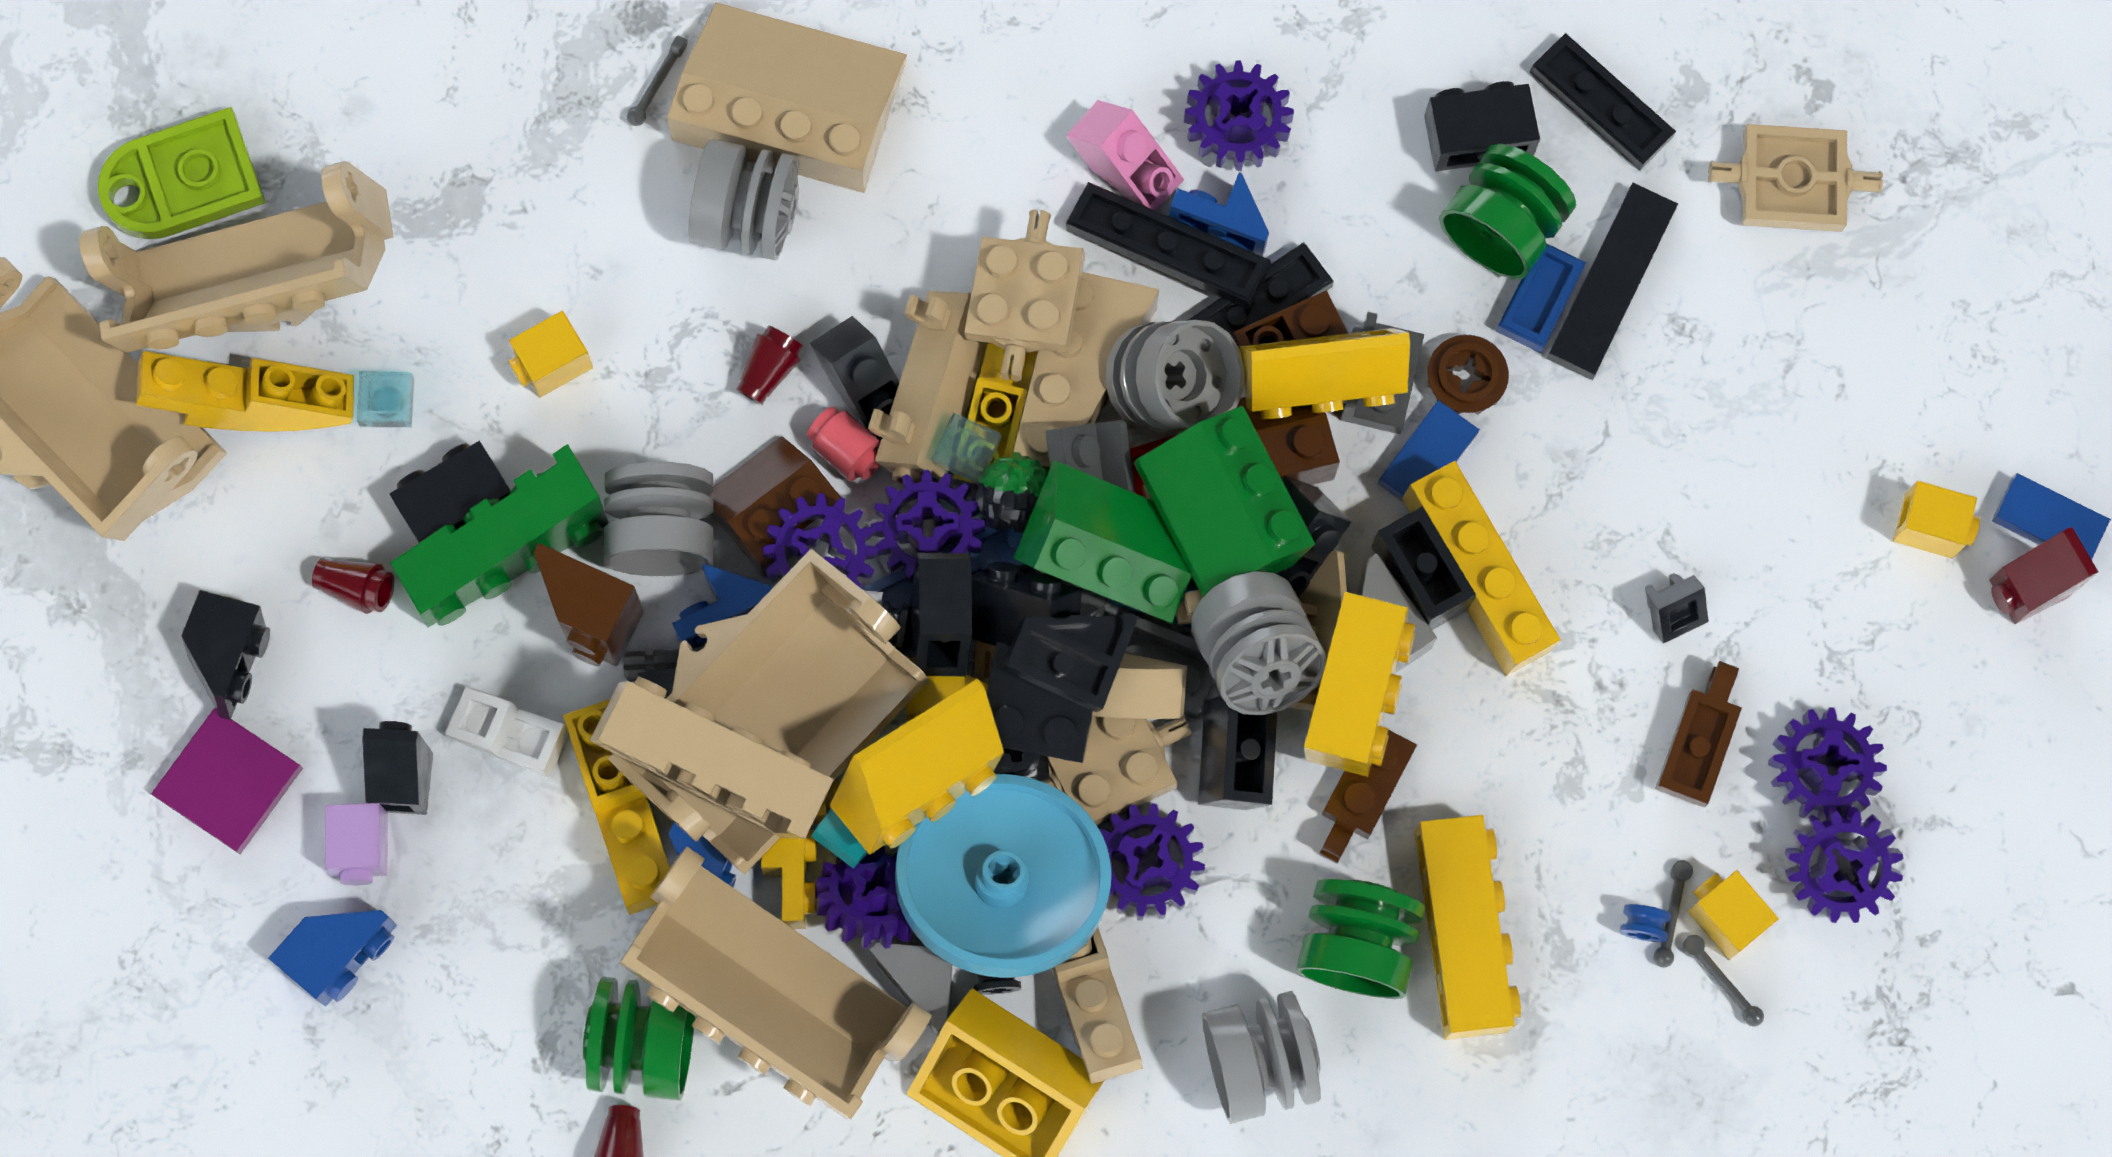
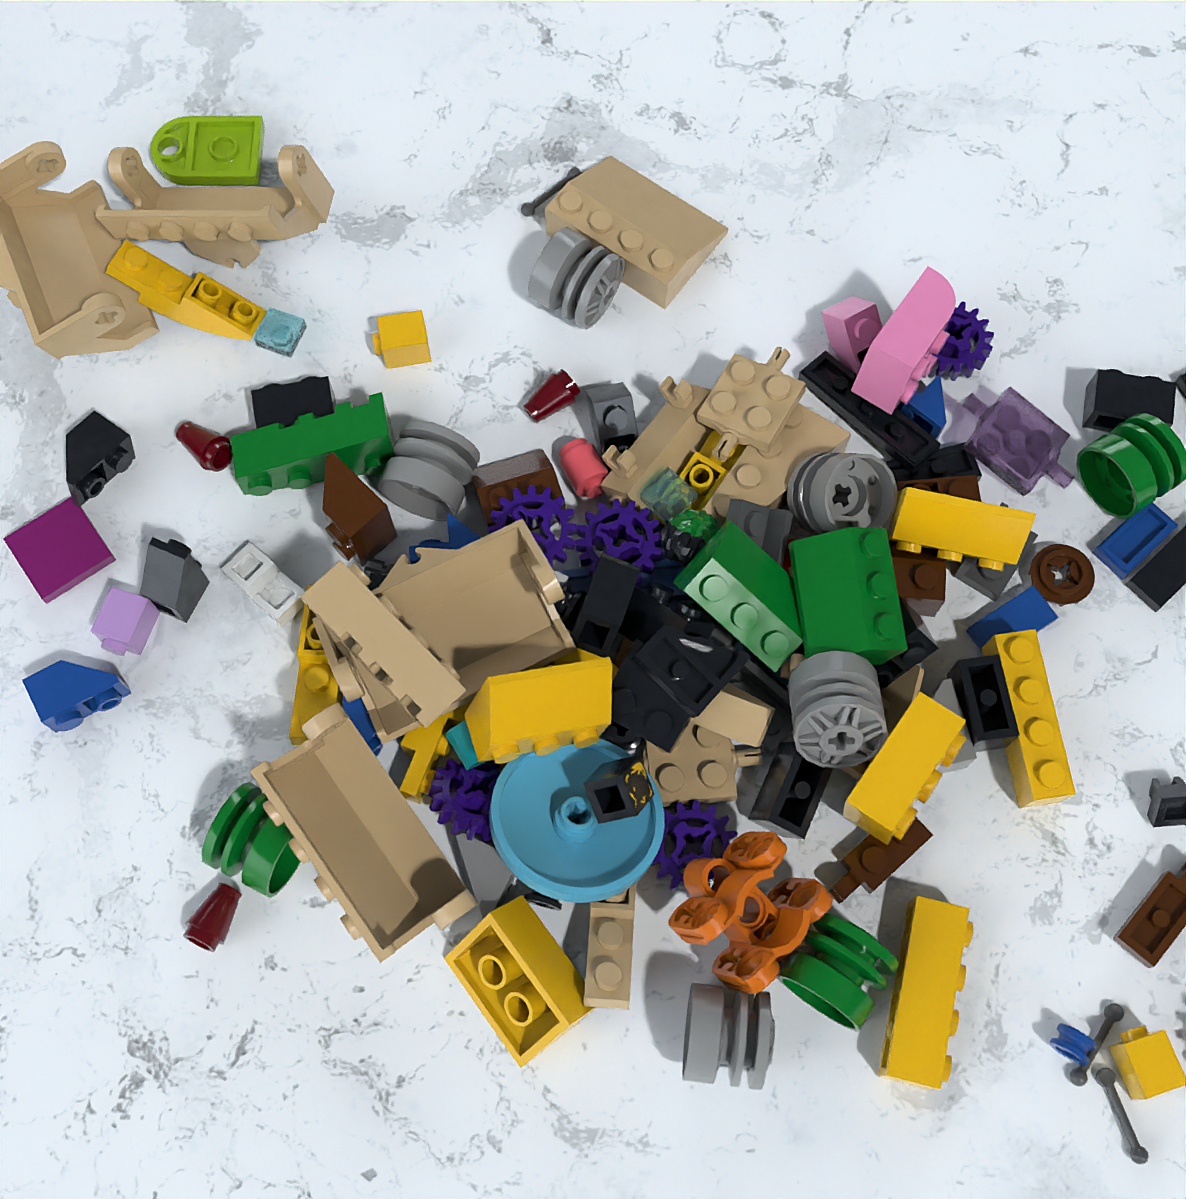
camera: 25 degrees right, 5 degrees down
(1041, 826) = (619, 789): none -> black brick
(1191, 155) = (906, 343): none -> bright pink brick
(1233, 913) = (785, 913): none -> orange piece
(1361, 223) = (1016, 441): none -> clear purple plate

